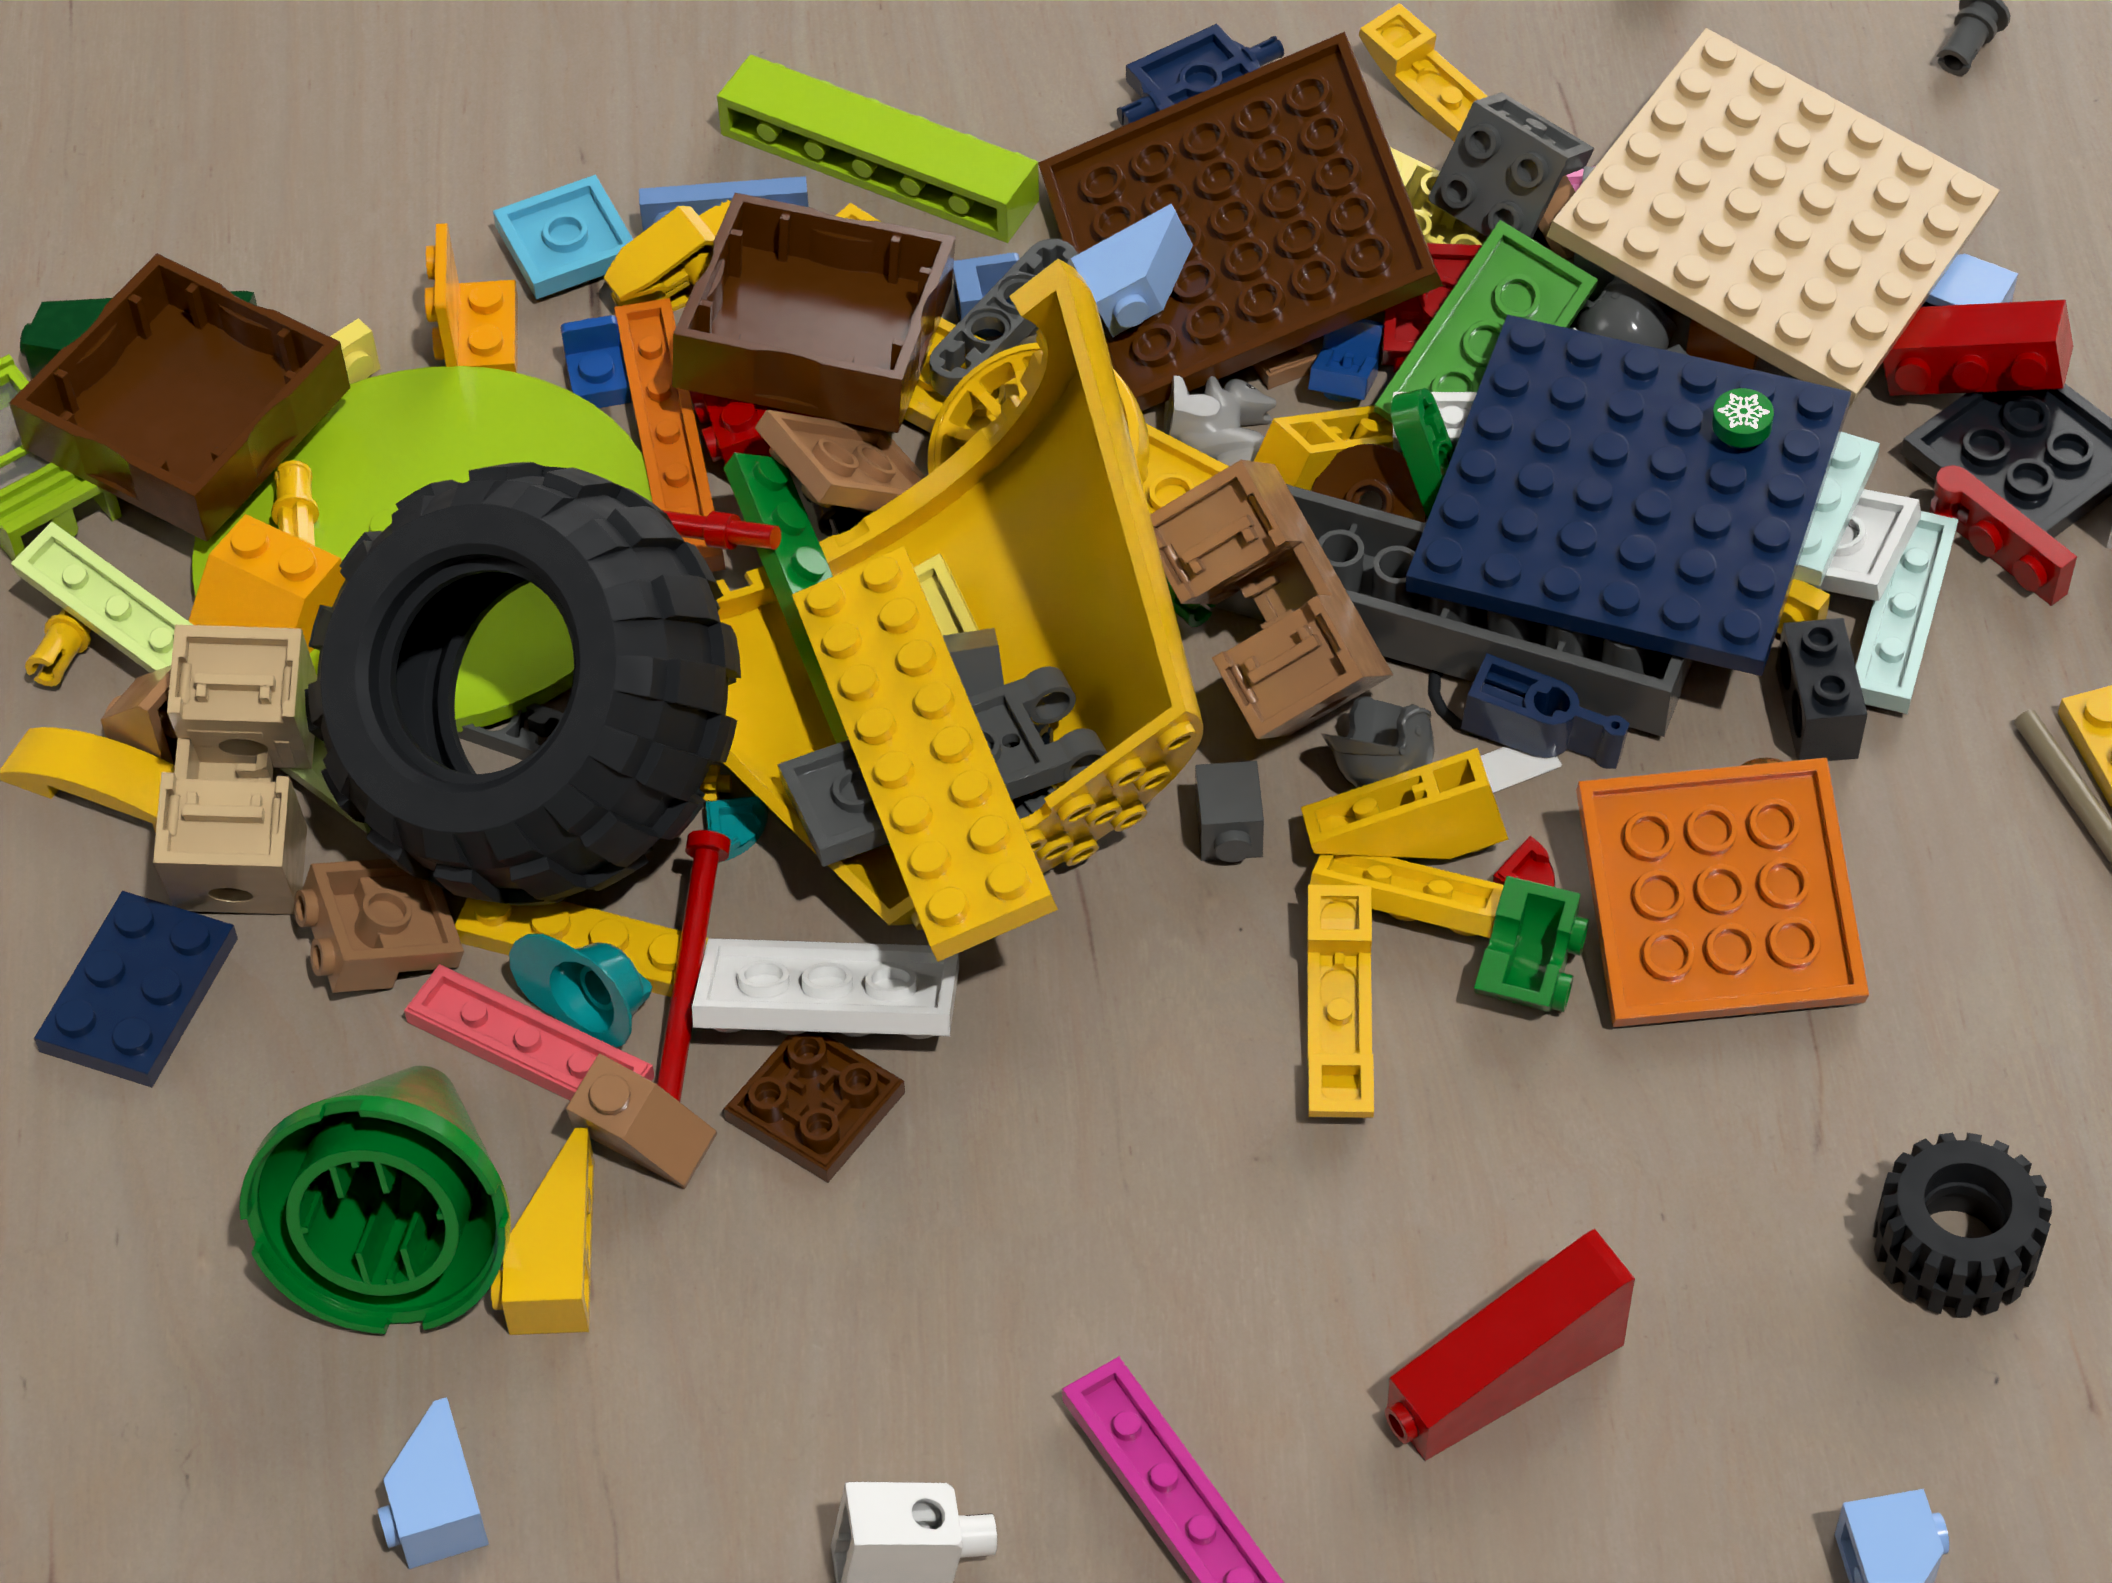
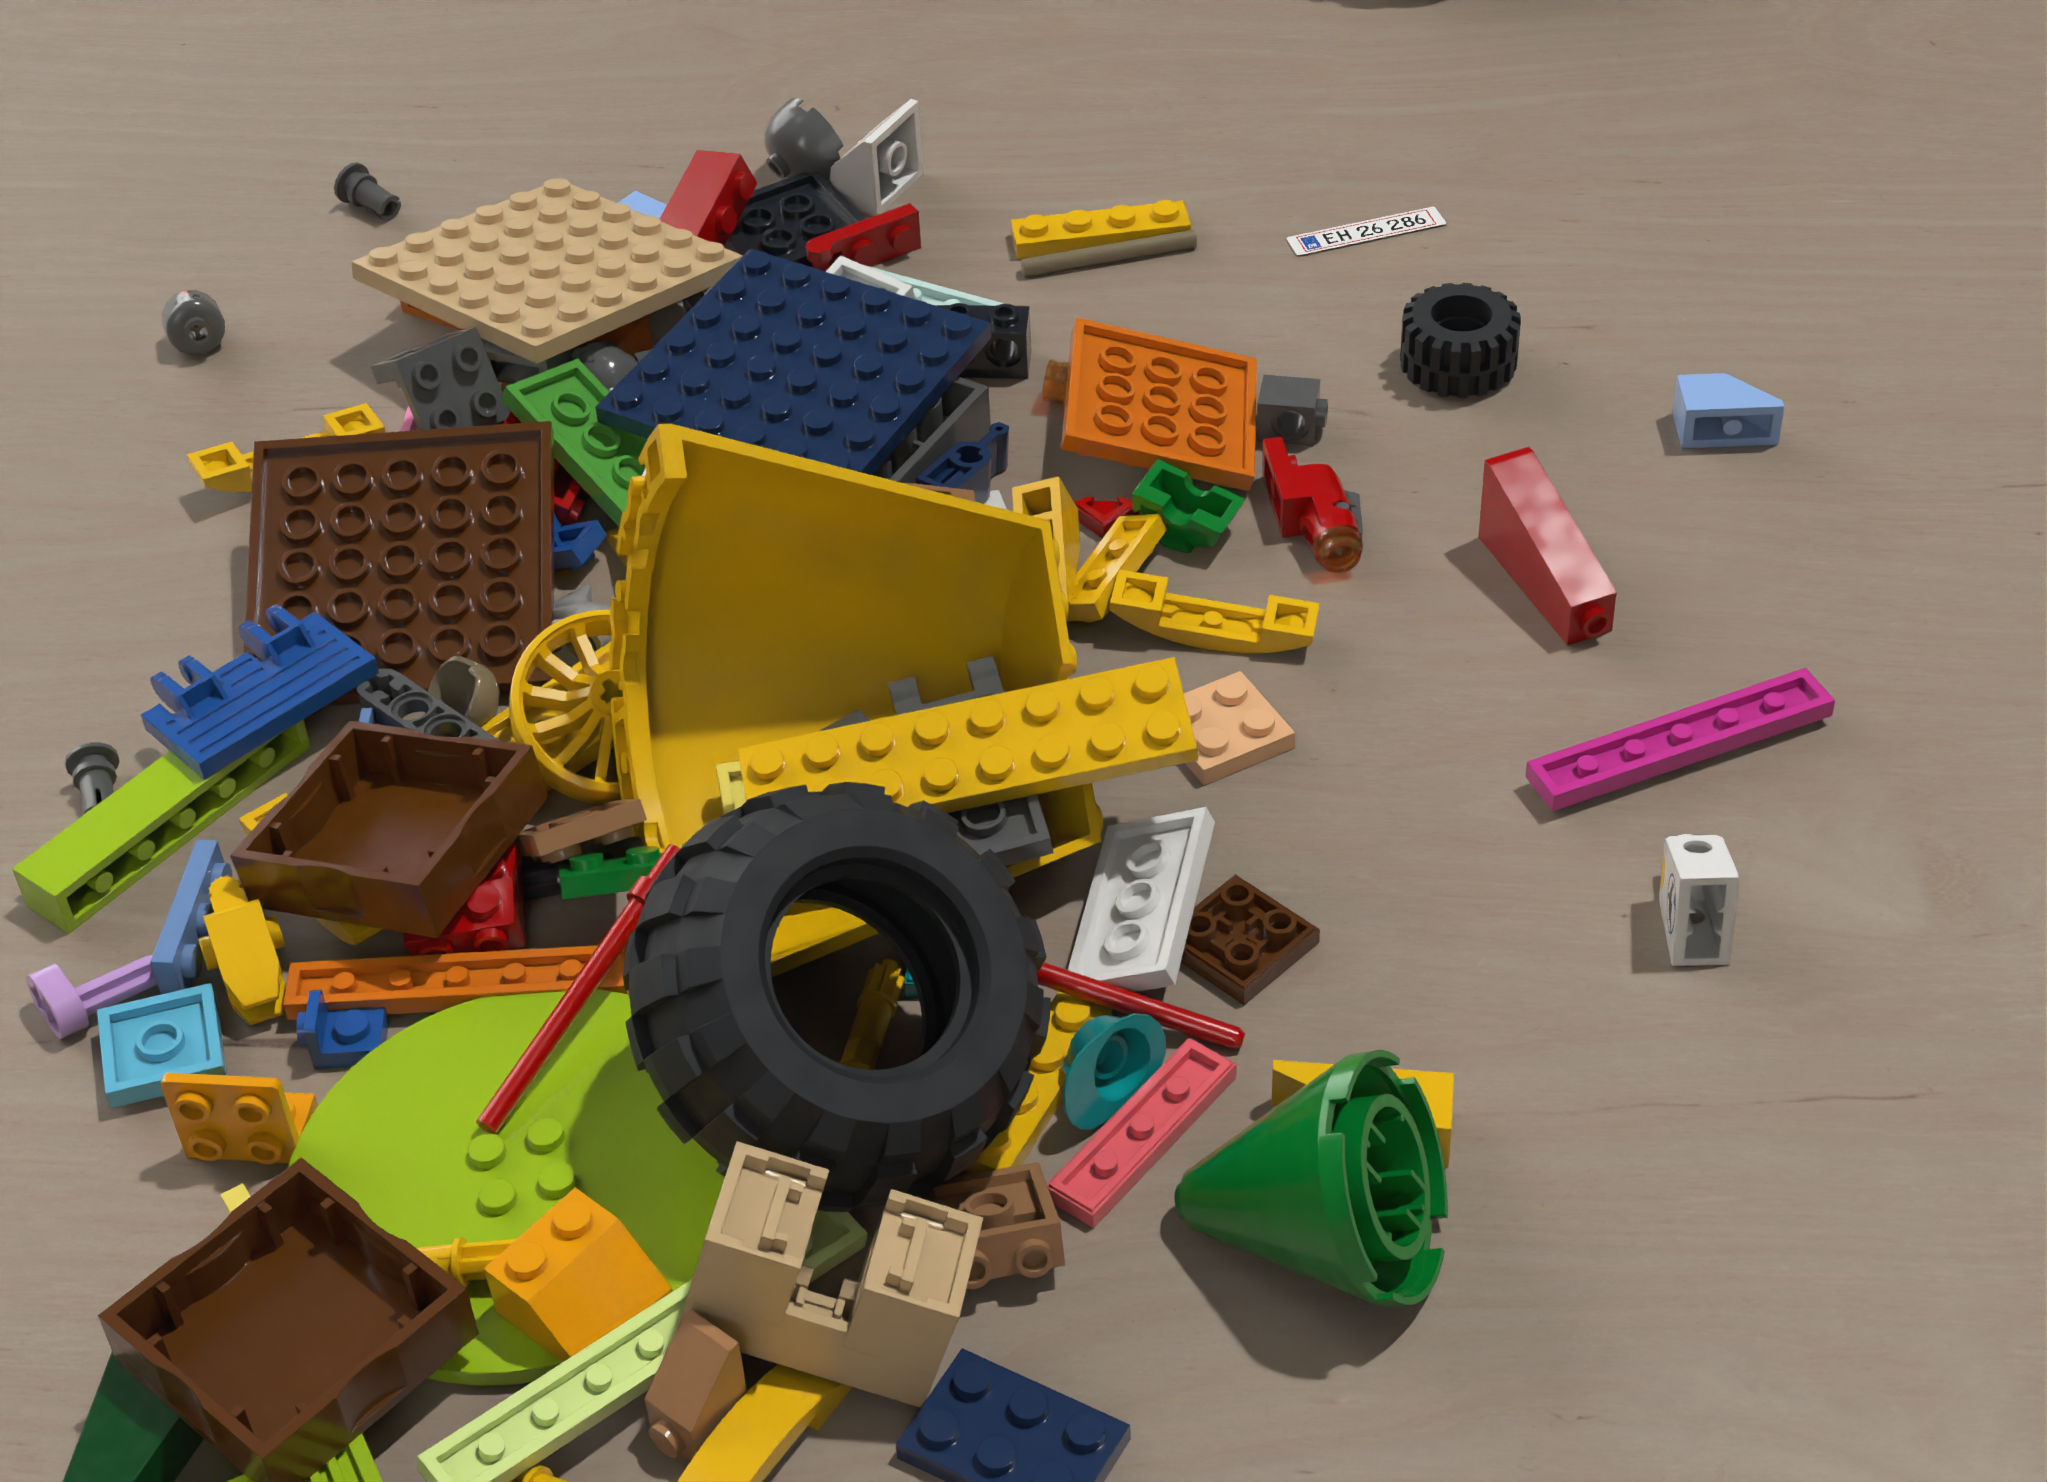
camera: 80 degrees left, 10 degrees down
(432, 1494) = (1622, 1206): light blue slope -> none
(611, 152) = (68, 1007): none -> lavender piece
(640, 1121) = (1253, 1037): medium nougat slope -> none
(911, 84) = (93, 771): none -> dark grey pin
(1018, 172) = (254, 700): none -> blue hinge
(1135, 269) = (432, 625): light blue slope -> none
(1157, 1045) = (1234, 728): none -> light nougat plate
(1190, 69) = (194, 596): dark blue plate -> none
(1575, 1088) = (1313, 504): none -> red plate
(1742, 417) = (768, 289): green tile -> none
(1766, 1043) = (1290, 409): none -> dark grey brick

